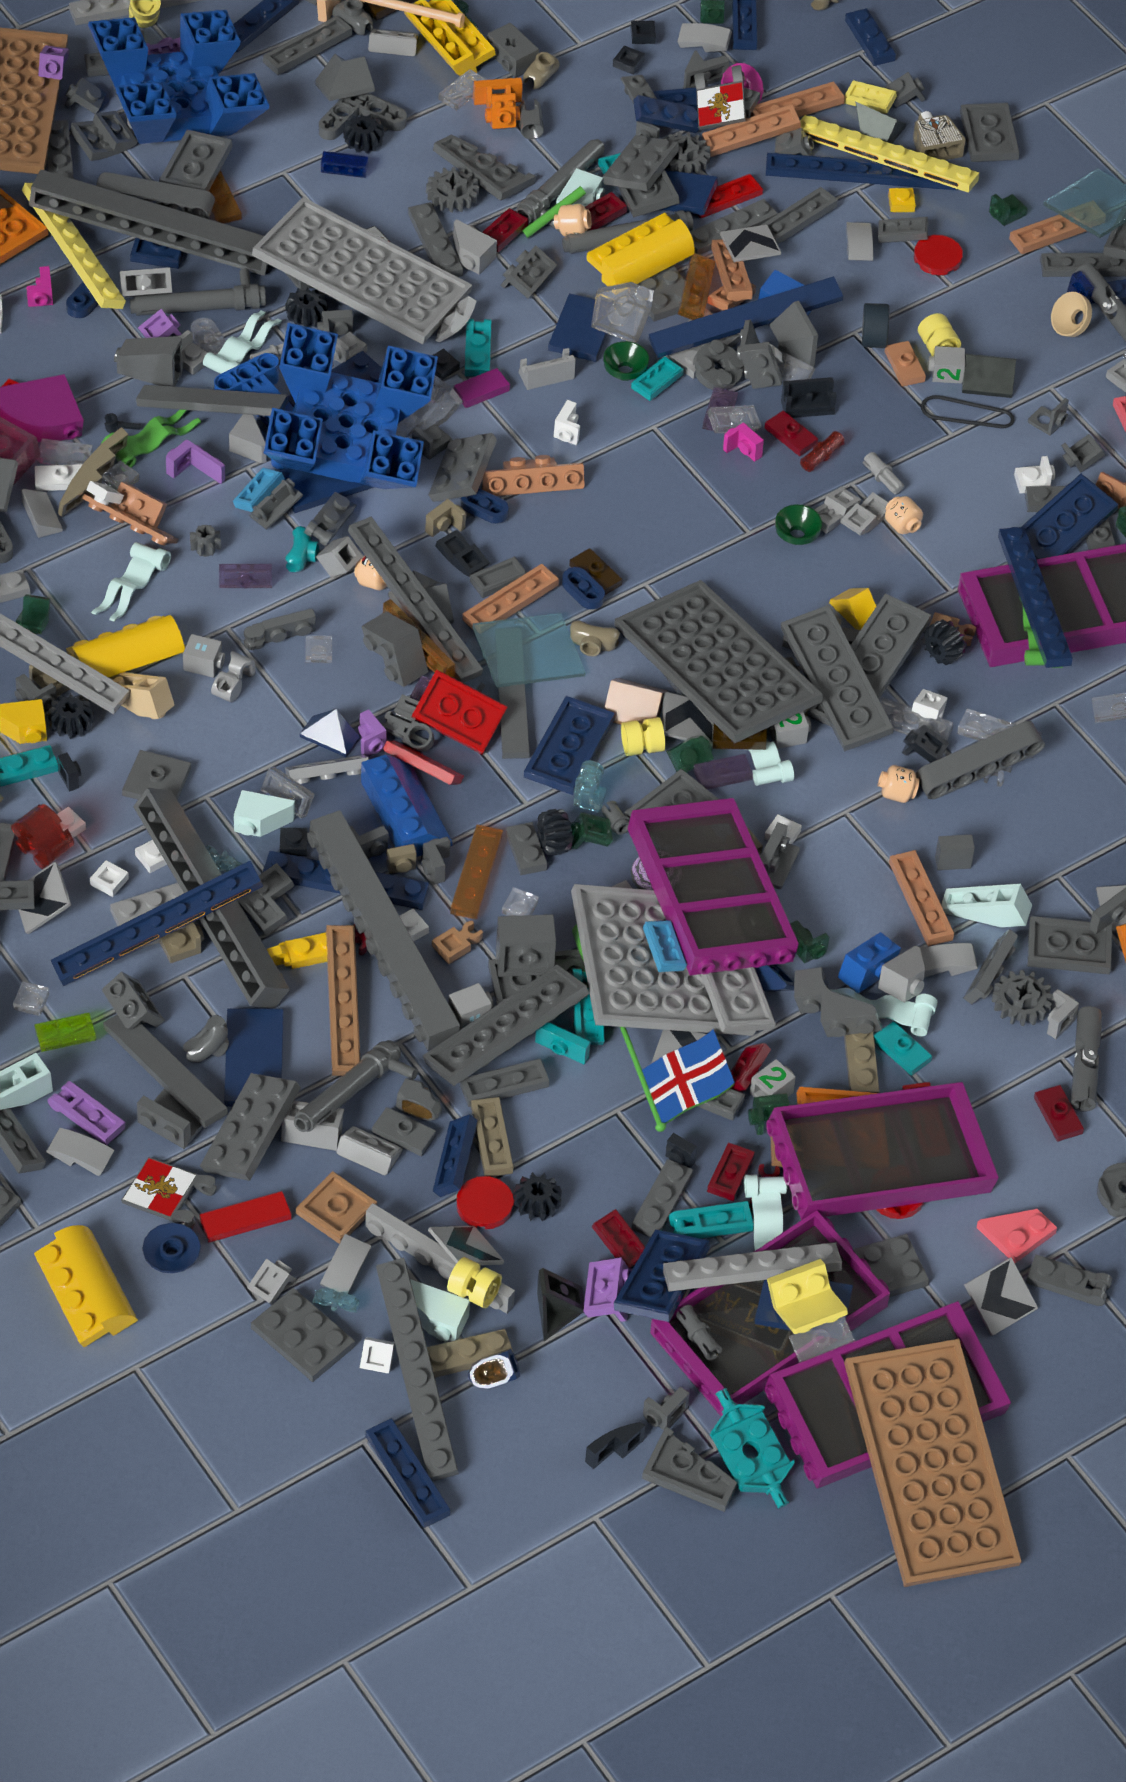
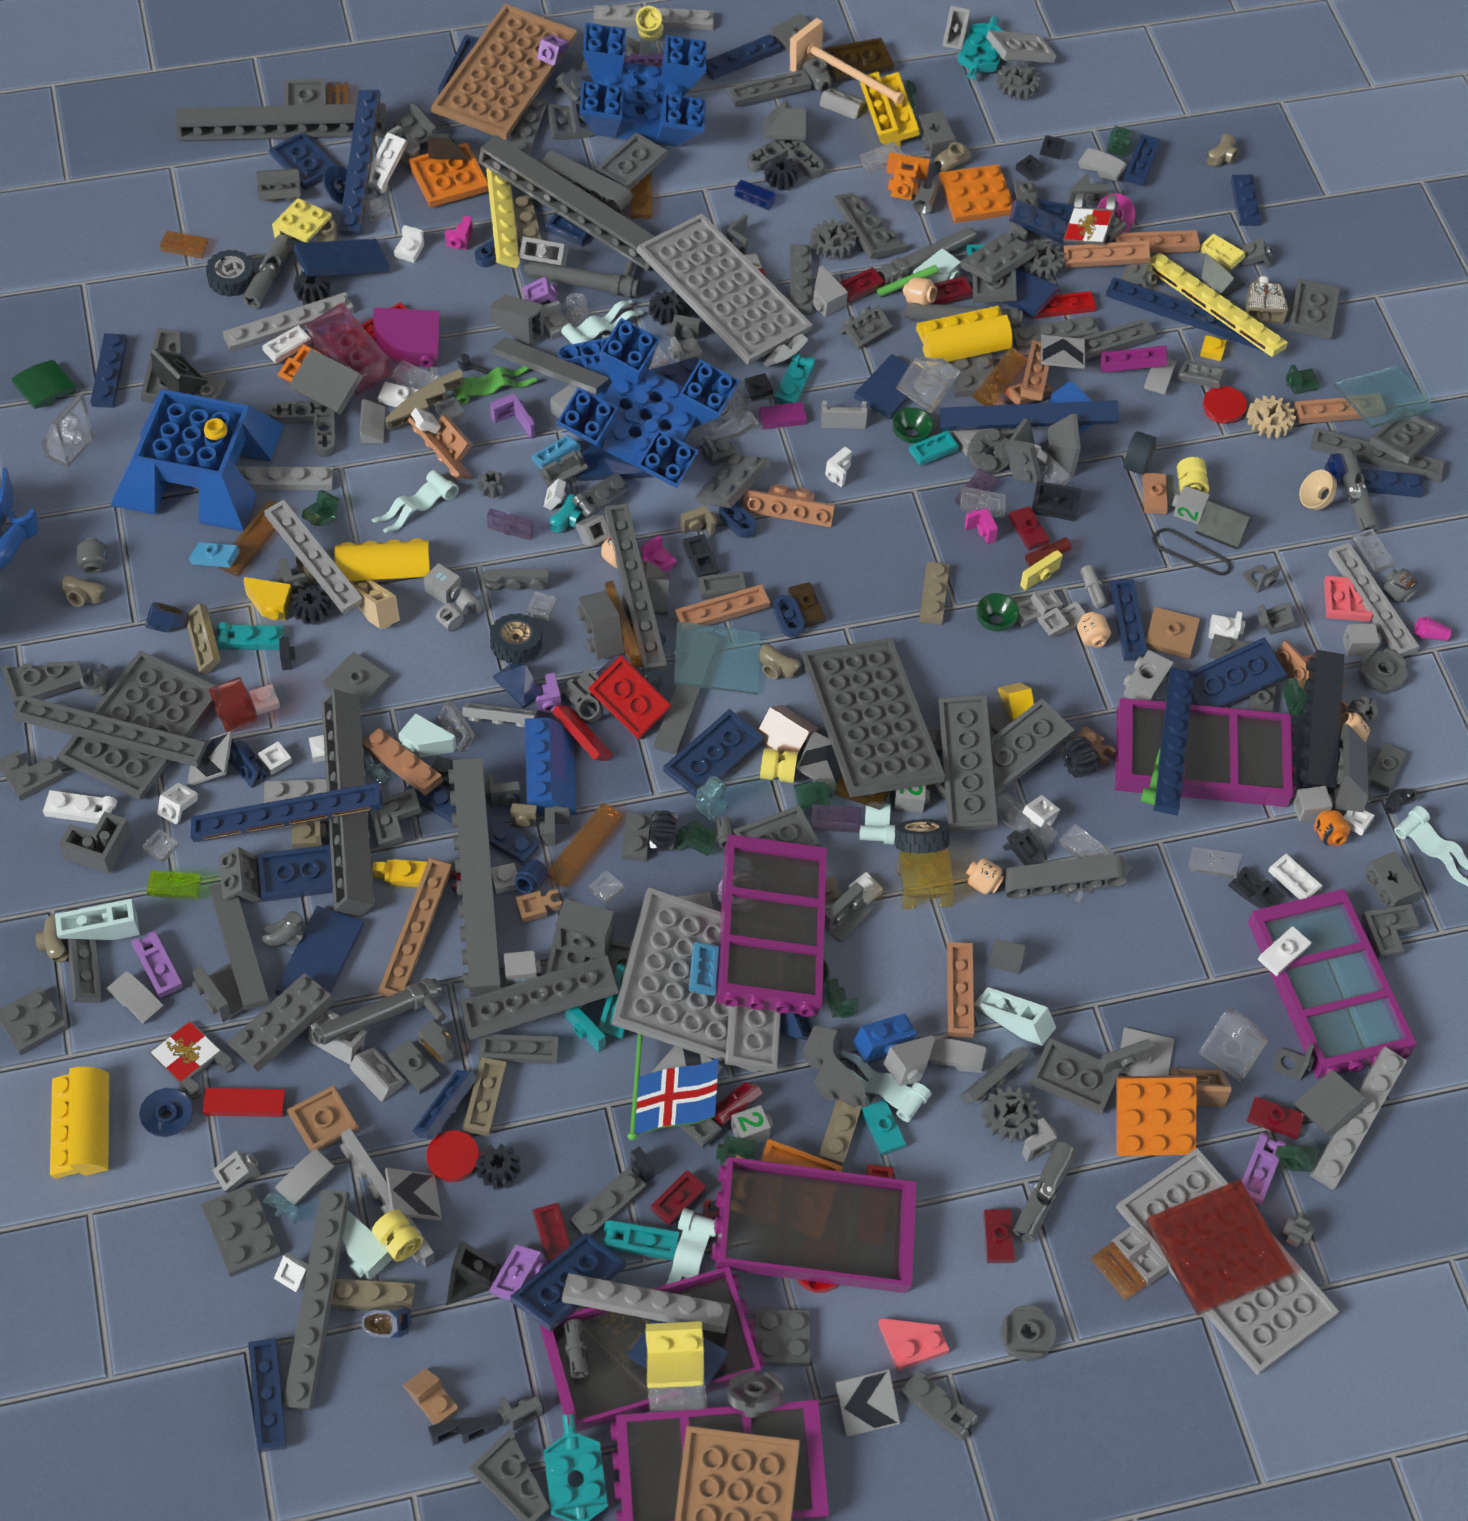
camera: 20 degrees right, 5 degrees up
(25, 952) = (175, 801): none -> white bracket
(84, 896) = (240, 758): none -> dark blue hinge
(106, 254) = (525, 218): none -> dark tan plate
(189, 983) = (295, 873): none -> dark blue plate
(249, 843) = (402, 761): none -> nougat plate
(278, 532) = (555, 494): none -> white plate
(308, 688) = (516, 638): none -> black wheel
(342, 207) = (735, 230): none -> dark grey bracket
(419, 563) = (656, 554): none -> dark pink bracket
(439, 915) = (531, 877): none -> dark blue brick
(569, 1425) = (431, 1397): none -> medium nougat slope
(583, 102) = (976, 193): none -> orange plate
(722, 524) = (934, 593): none -> dark tan plate
(821, 761) = (922, 836): none -> black wheel
(824, 471) = (1041, 570): none -> light yellow plate
(827, 231) = (1134, 358): none -> magenta plate
(841, 799) = (925, 877): none -> clear yellow panel
(896, 1313) = (755, 1393): none -> dark grey plate
(933, 496) = (1128, 619): none -> dark blue plate
(979, 545) = (1155, 670): none -> light grey brick
(981, 497) = (1172, 632): none -> medium nougat plate
(991, 254) = (1270, 416): none -> tan gear

